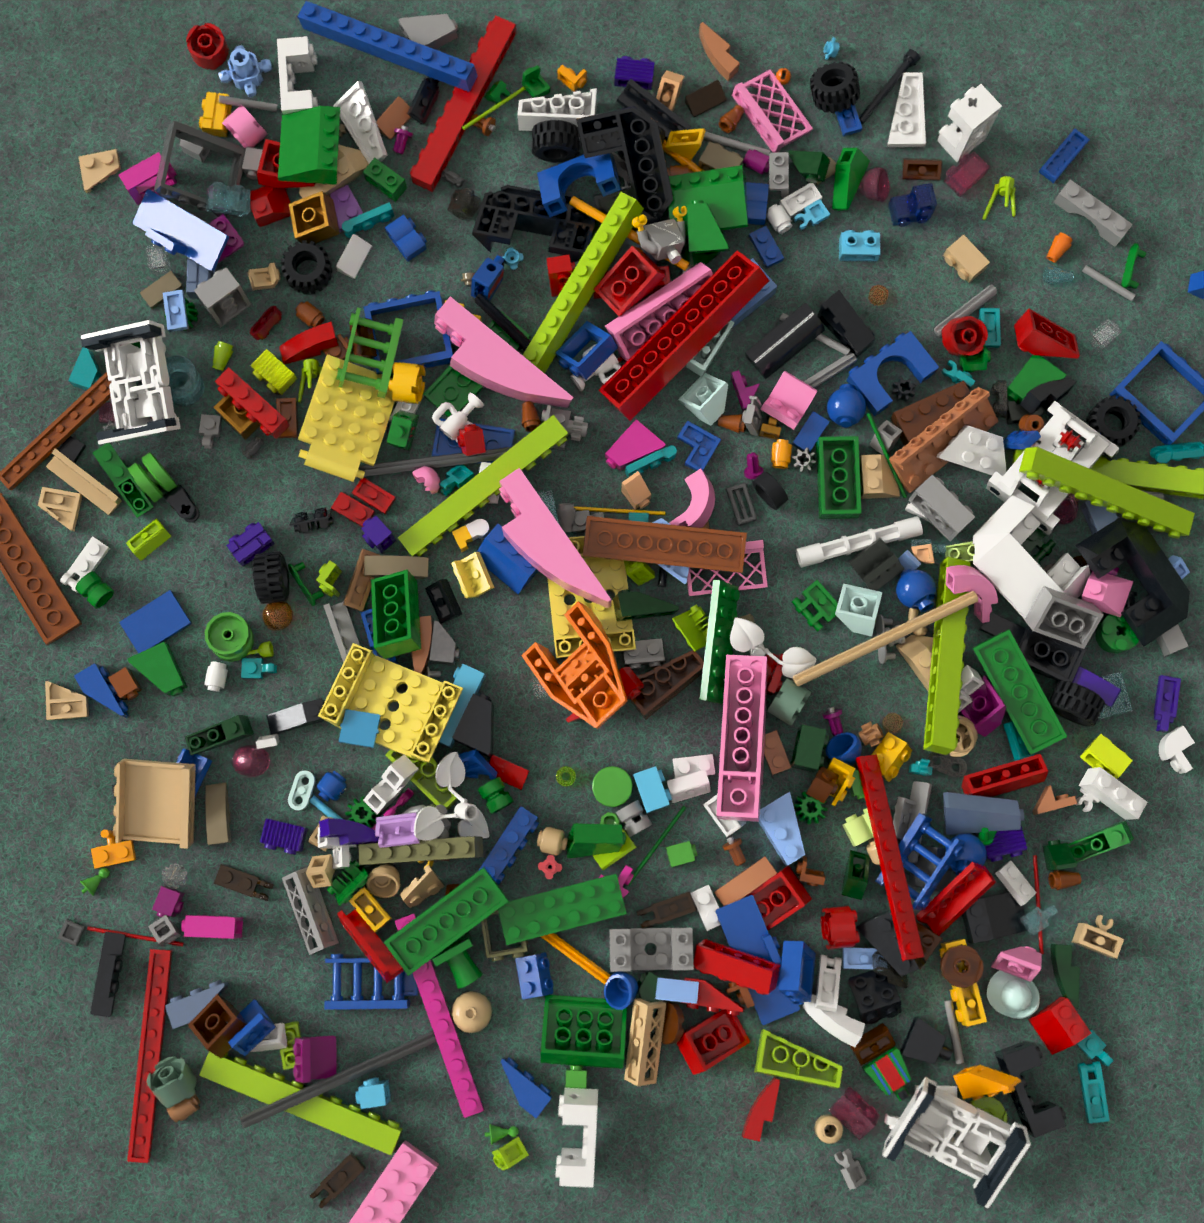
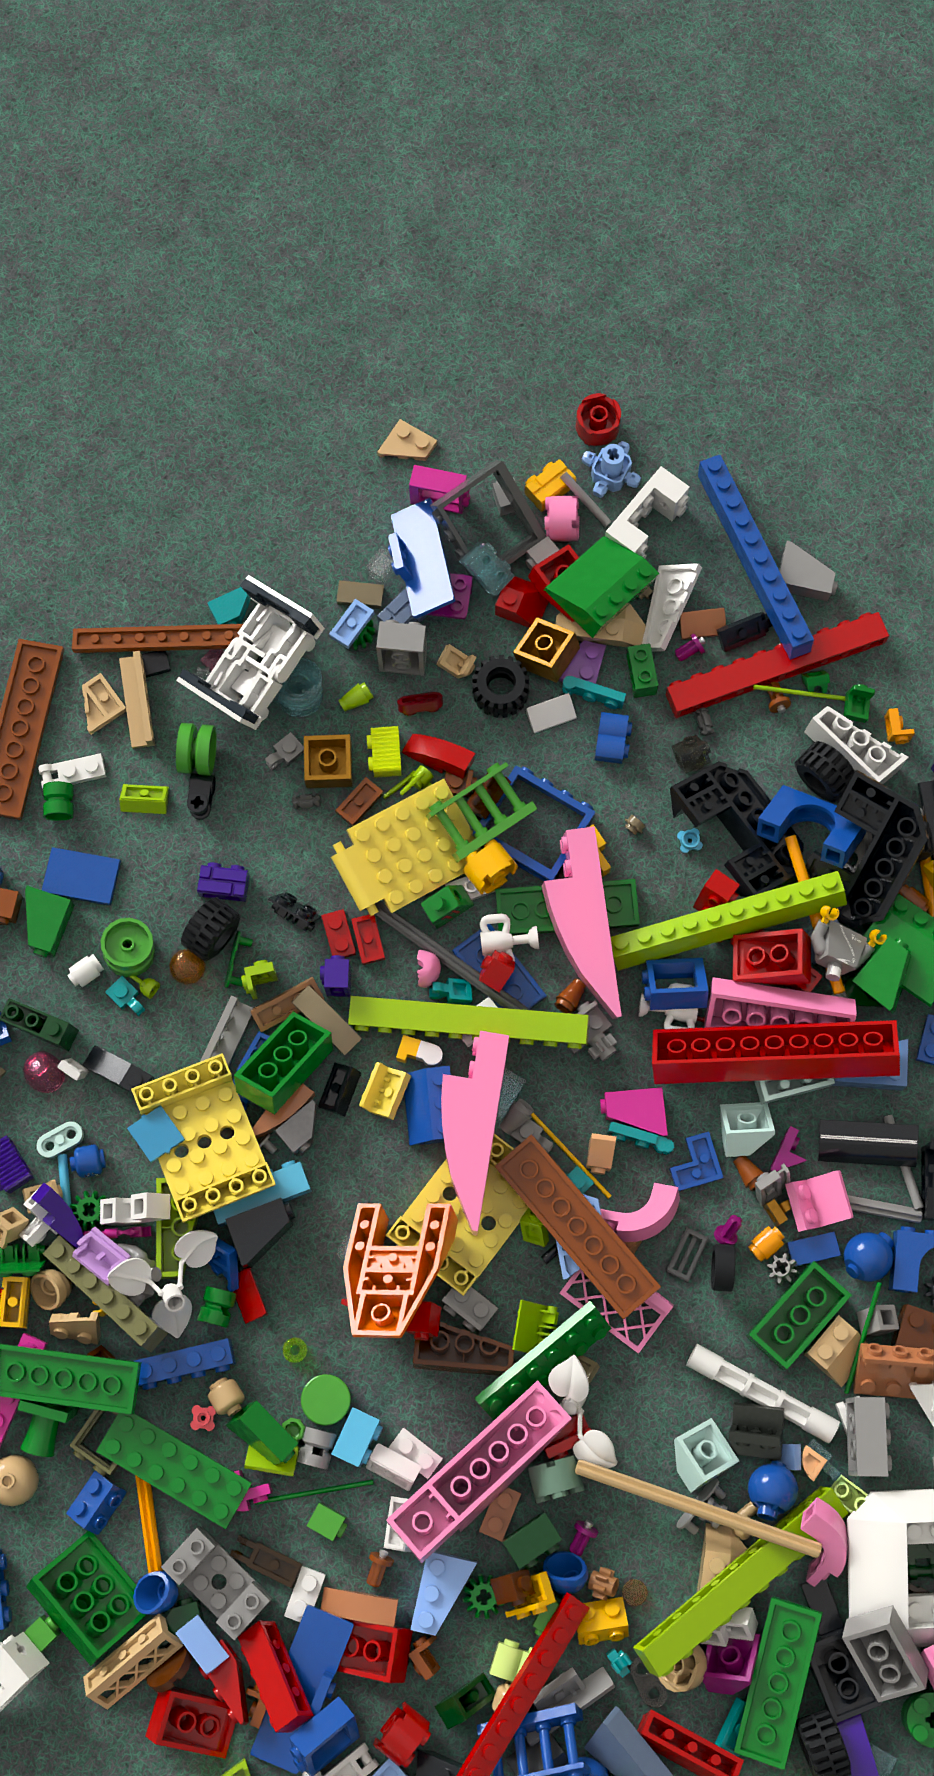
camera: 45 degrees right, 5 degrees down
(122, 479) = (174, 713): green slope -> none
(250, 401) = (337, 758): red brick -> none
(309, 314) = (464, 730): dark orange brick -> none
(488, 277) = (649, 839): blue torso -> none
(502, 321) = (626, 889): black axle -> none
(638, 605) = (503, 1258): dark green slope -> none
(821, 601) = (674, 1415): green plate -> none

